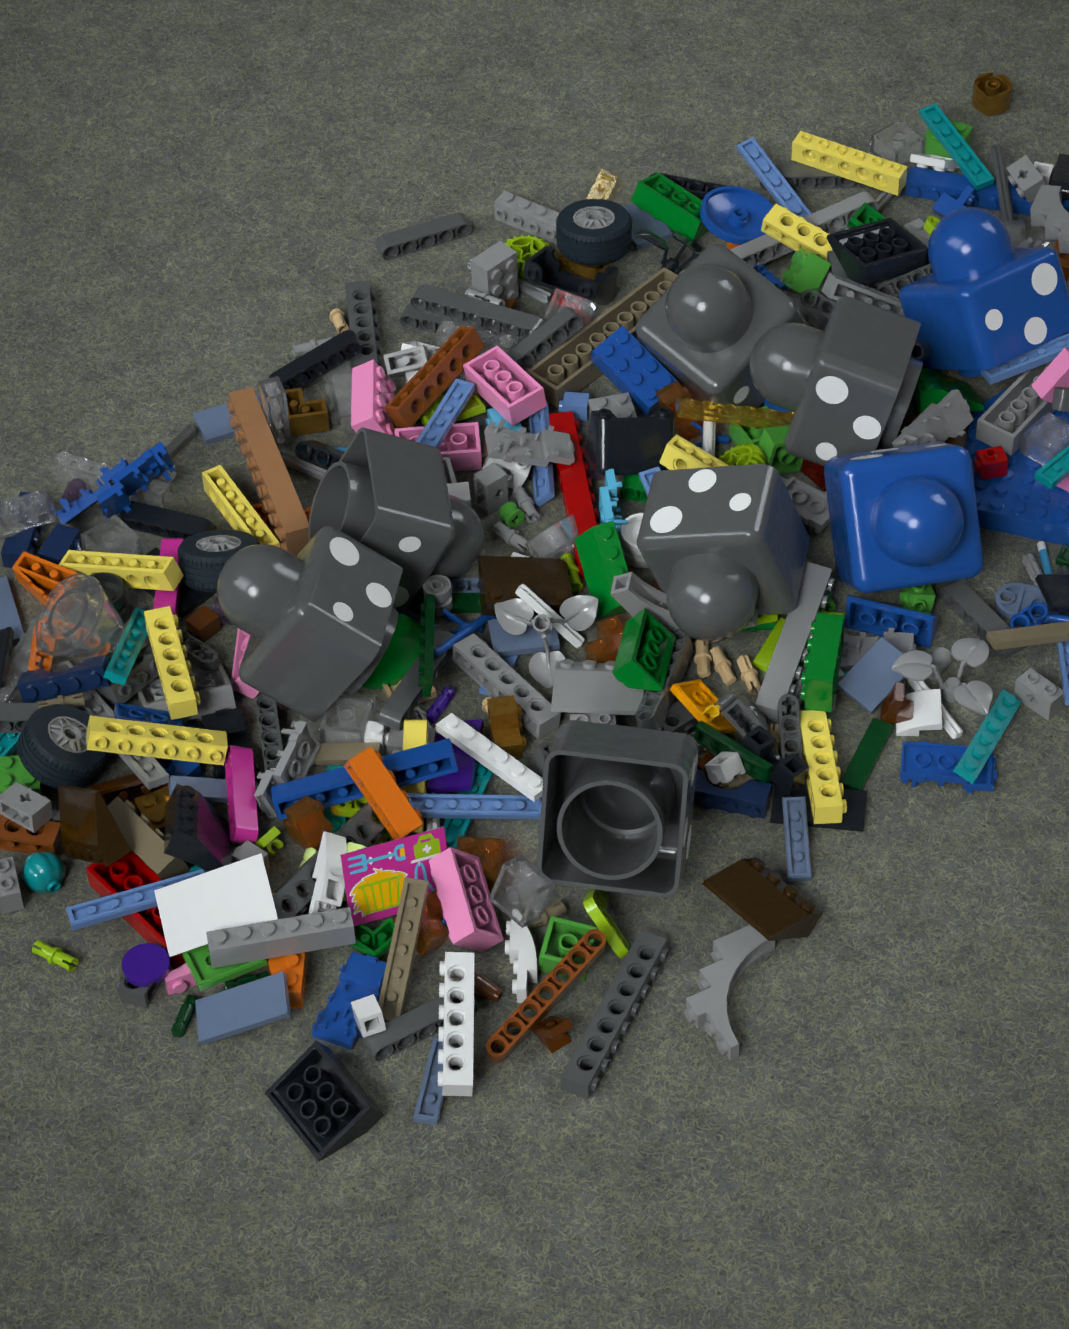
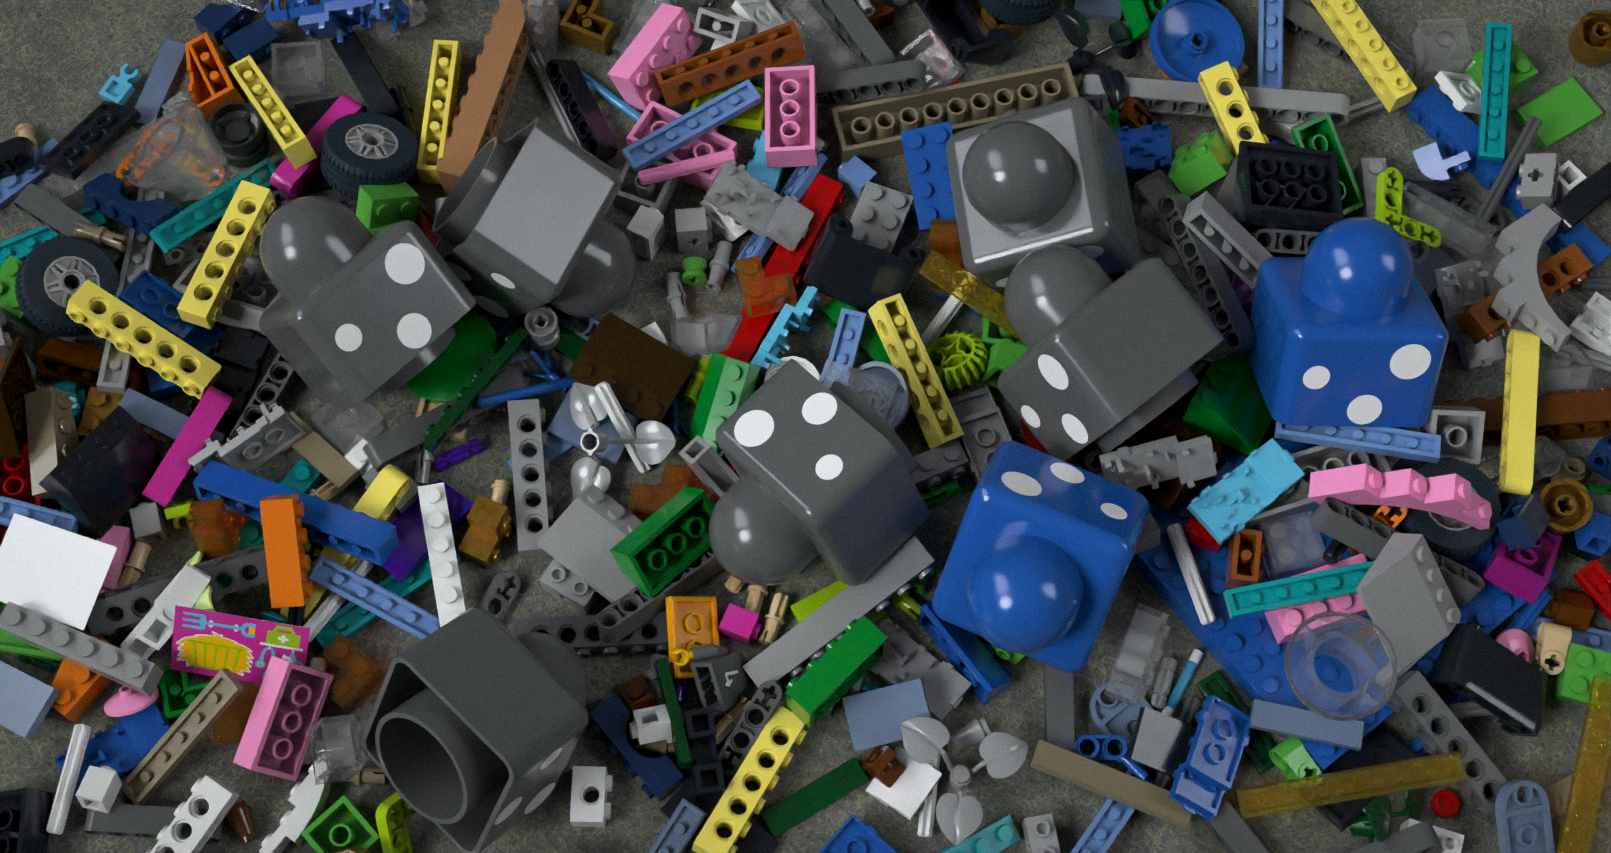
camera: 30 degrees right, 20 degrees up
(34, 609) = (181, 96): none -> light grey axle
(336, 1029) = (68, 779): none -> white axle
(337, 960) = (128, 702): none -> bright pink dish
(463, 445) = (685, 167): none -> bright pink axle
(573, 493) = (762, 294): none -> clear orange brick
(716, 836) = (586, 780): none -> white brick
(729, 683) = (740, 624): none -> dark pink brick
(999, 418) = (1246, 491): none -> medium azure piece
(1005, 494) = (1191, 574): none -> white axle
(1006, 556) = (1138, 655): none -> clear brick
(1012, 142) = (1561, 111): none -> bright green tile
(1026, 460) = (1244, 559): none -> dark orange brick

